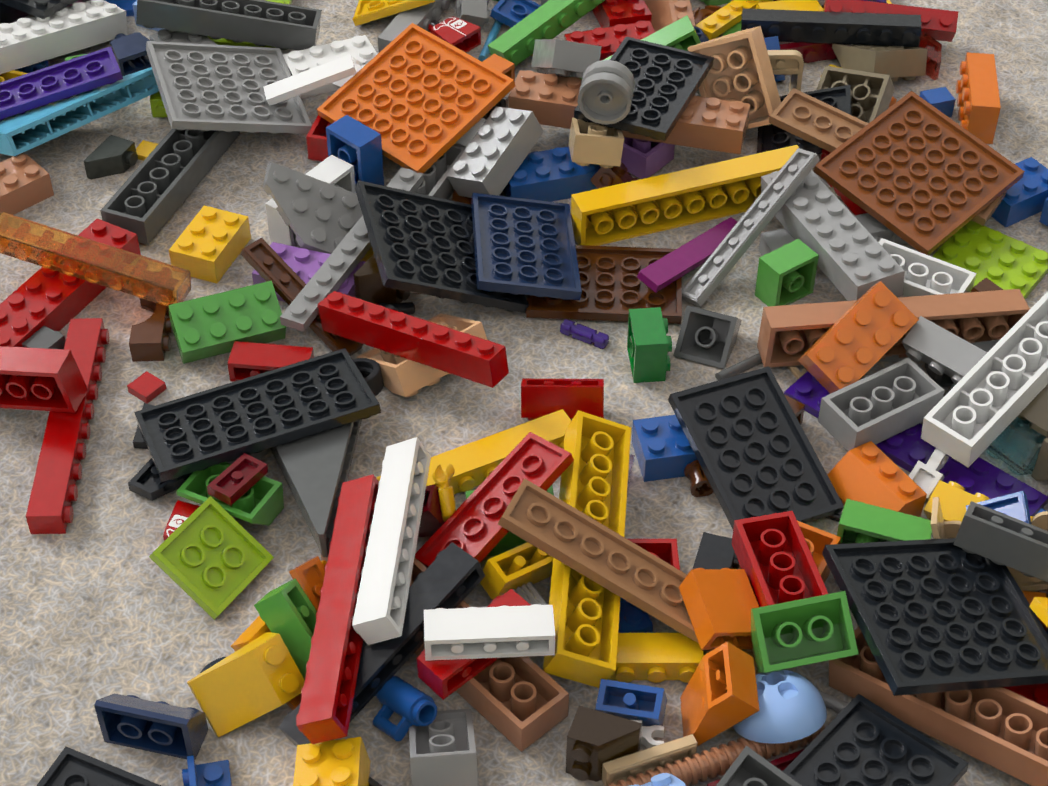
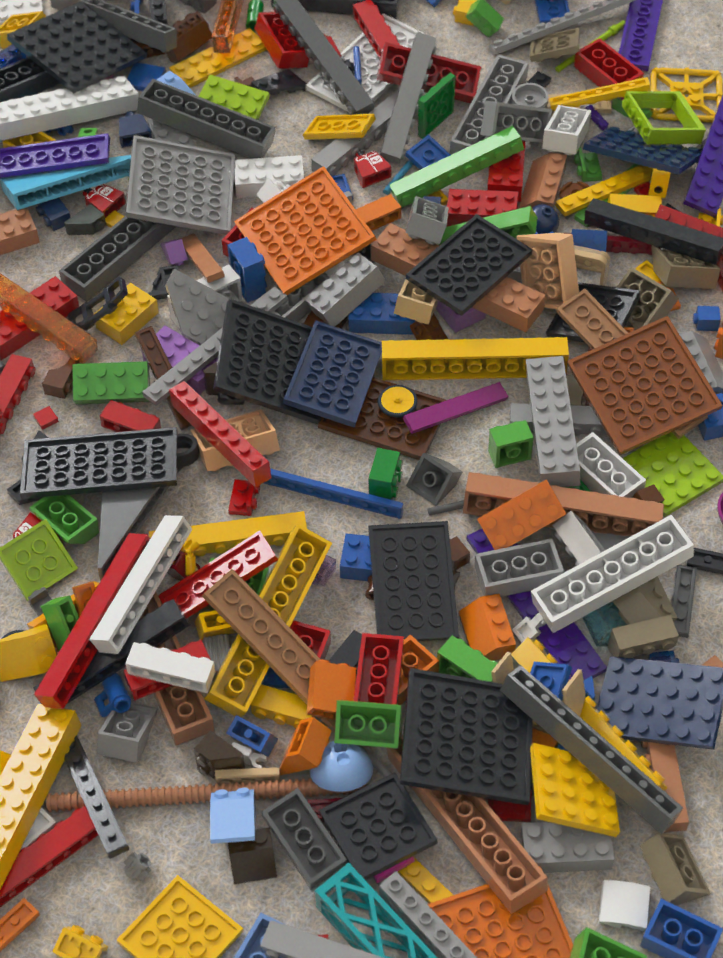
camera: 20 degrees right, 10 degrees up
(62, 156) = (54, 213): none -> dark blue brick
(126, 126) = (105, 198): none -> red torso
(191, 230) = (109, 307): none -> black bar
(236, 613) = (39, 598): none -> dark grey bracket
(237, 479) = (67, 510): dark red plate -> none
(245, 165) = (174, 252): none -> medium lavender slope
(249, 200) = (159, 290): none -> black wing
(294, 159) = (202, 258): none -> nougat tile
(309, 80) = (237, 195): white tile -> none
(468, 416) = (243, 498): none -> red bracket
(547, 396) = (314, 502): red brick -> none
(584, 334) = (351, 452): dark purple axle -> none
(606, 92) = (426, 270): light grey wheel -> none
(615, 381) = (336, 493): none -> blue tile
(618, 261) = (397, 401): none -> yellow wheel
(749, 227) = (498, 399): light grey tile -> none

